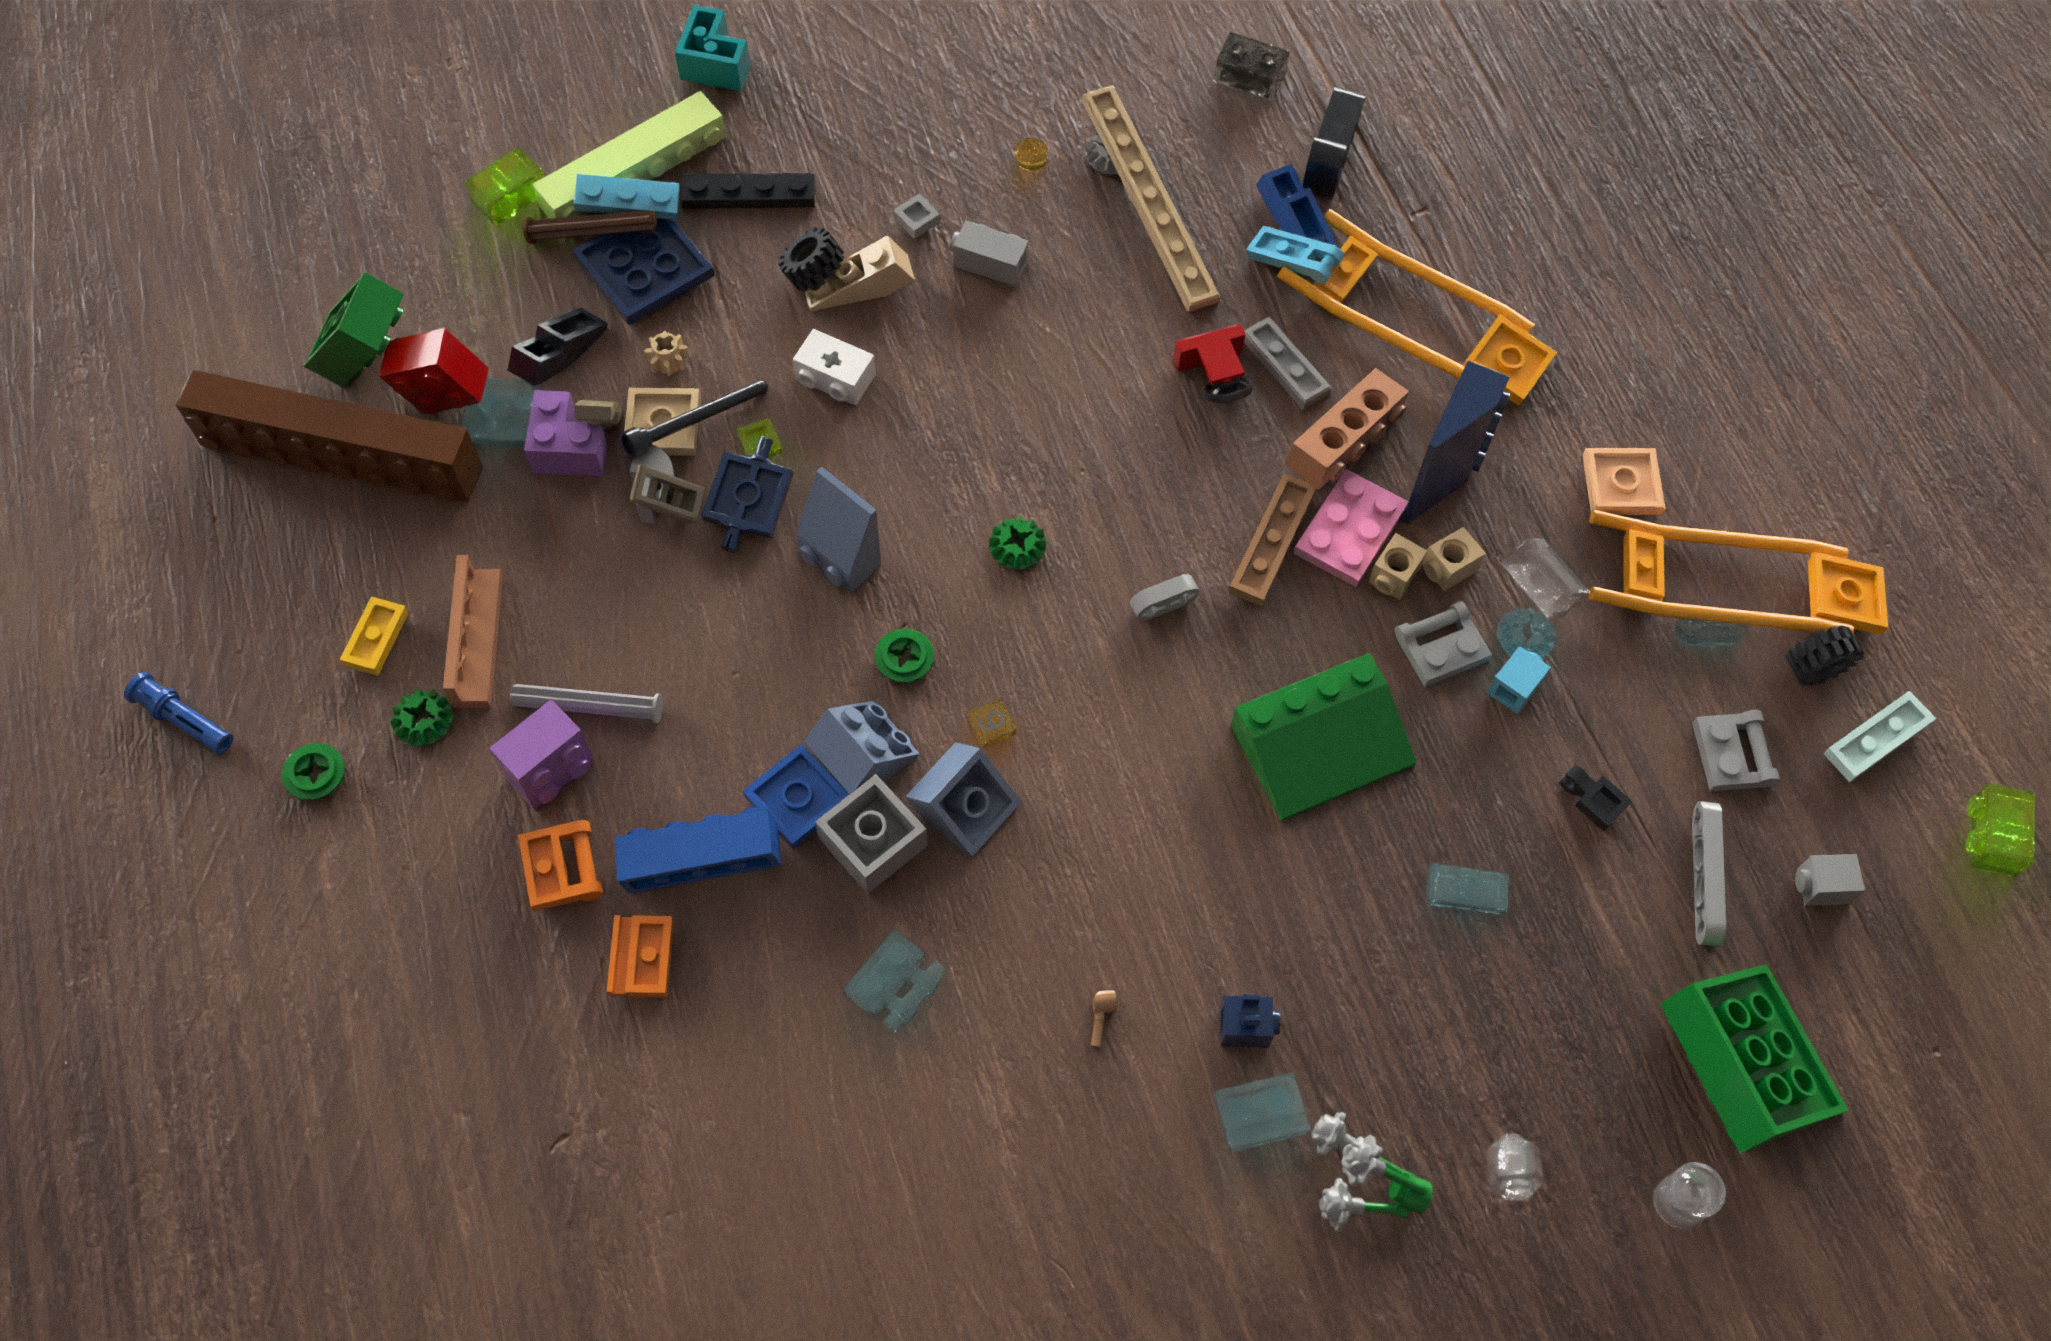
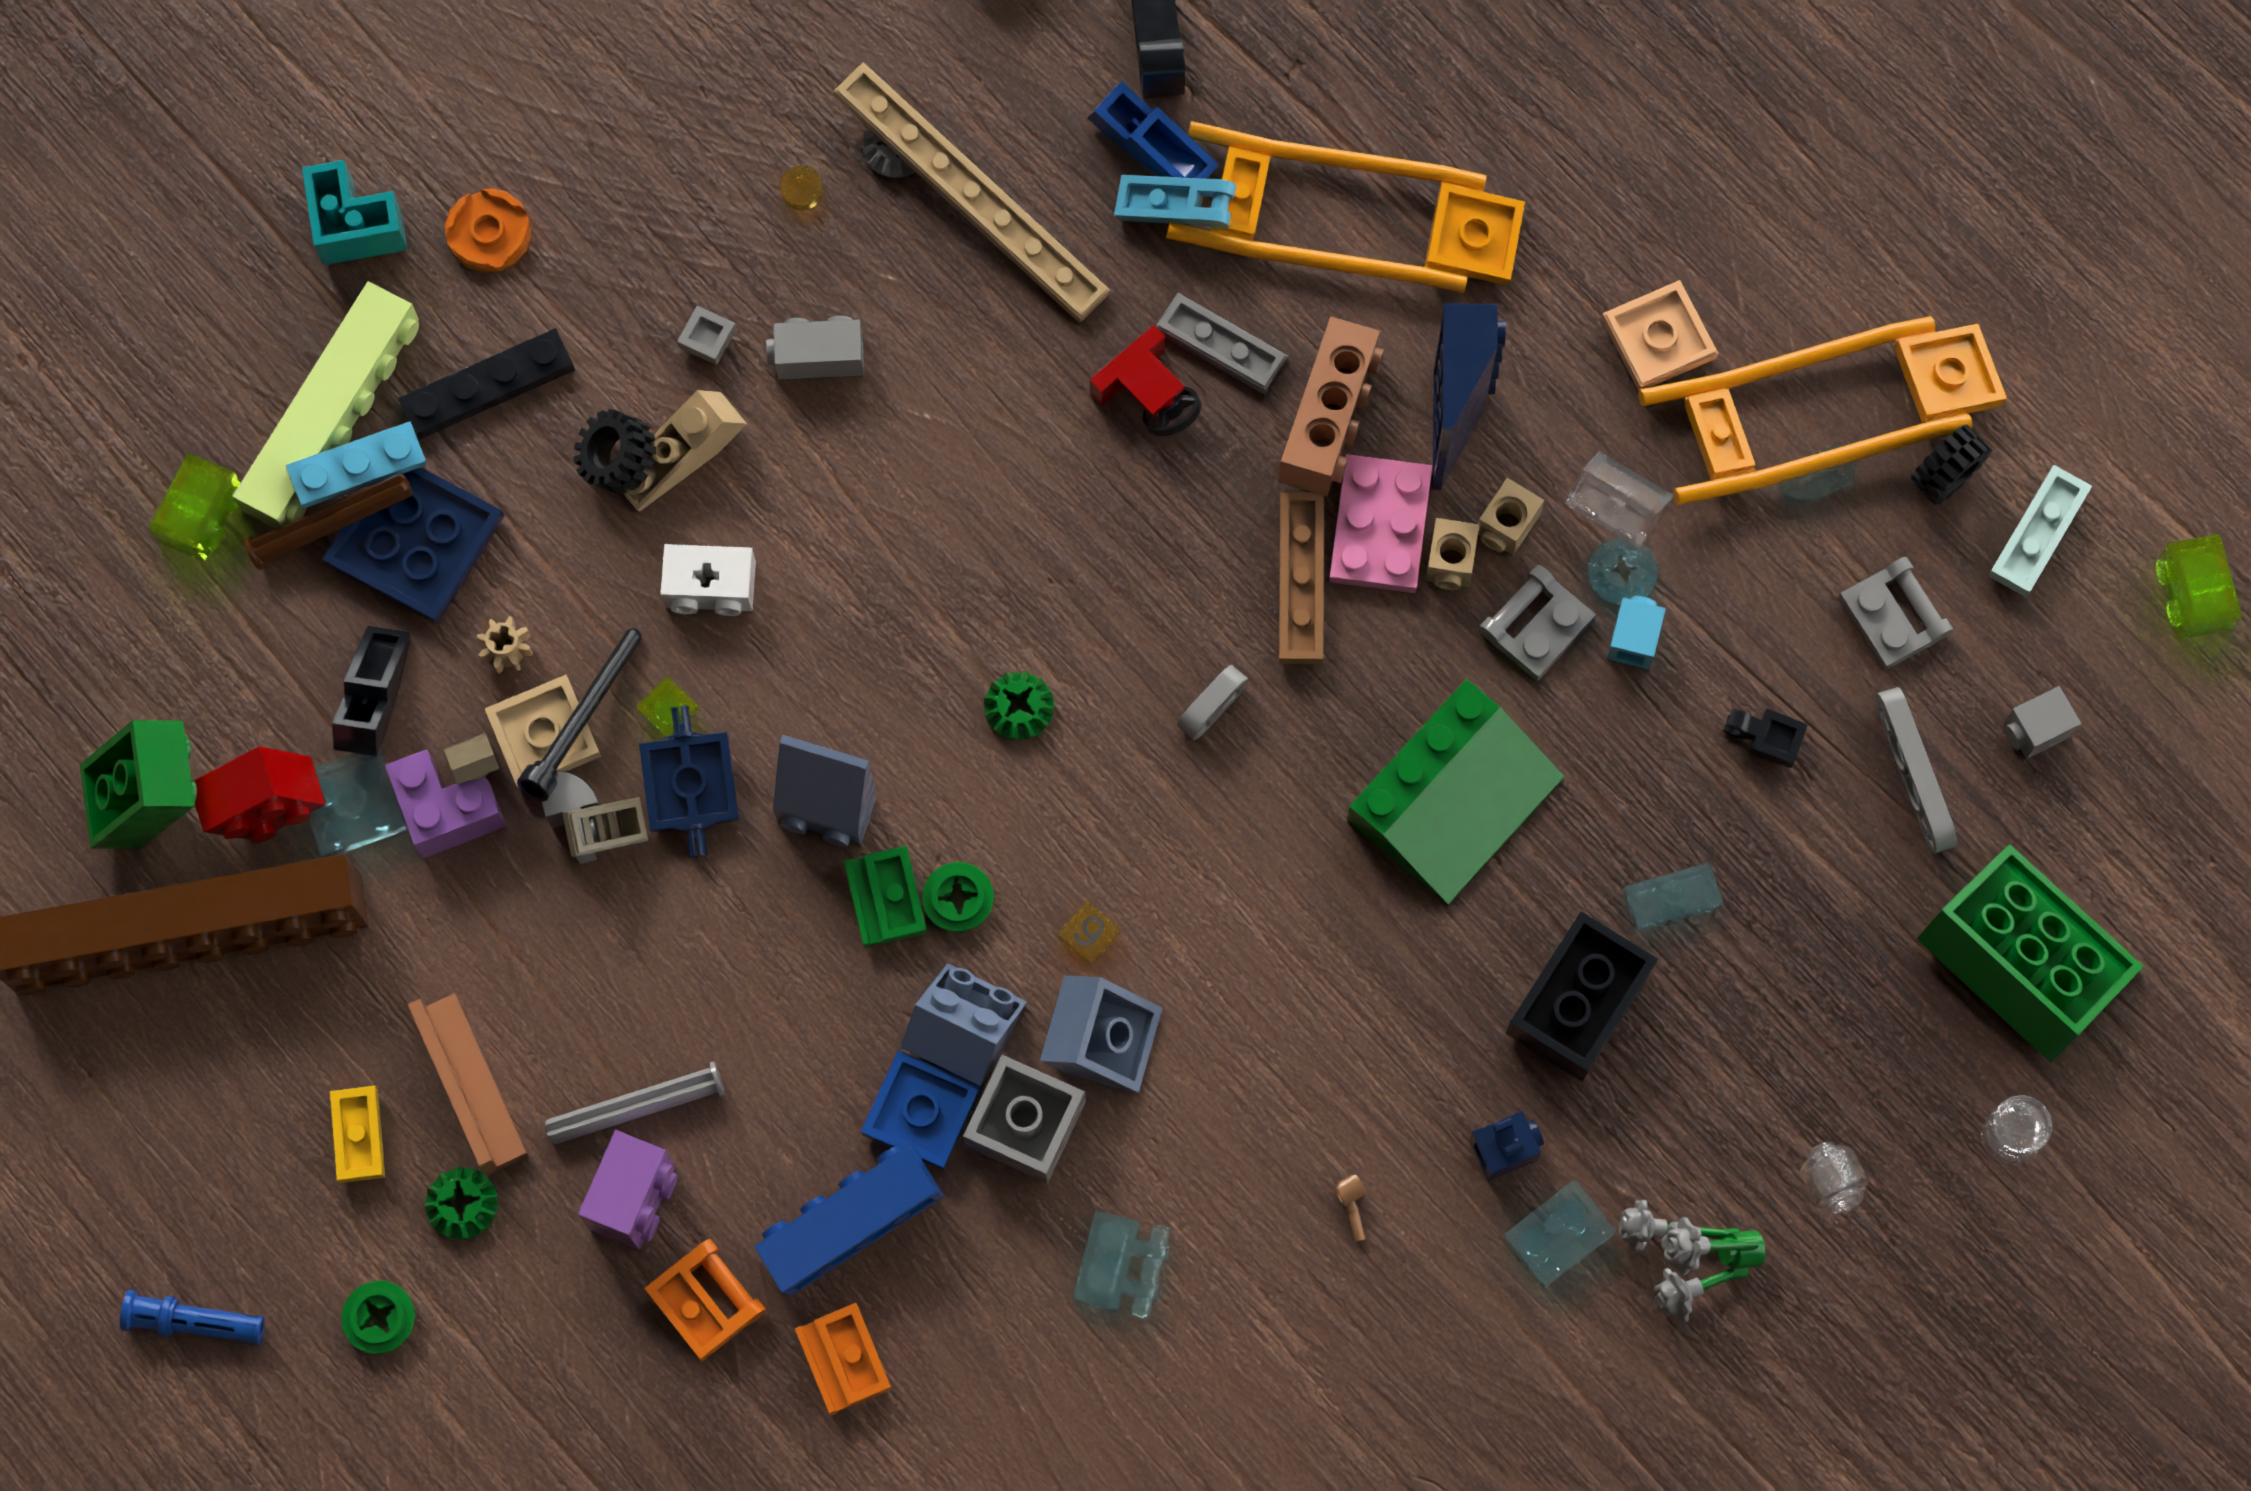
camera: 20 degrees left, 10 degrees up
(802, 100) = (488, 230): none -> orange tile
(850, 633) = (885, 897): none -> green plate
(1360, 929) = (1581, 996): none -> black brick

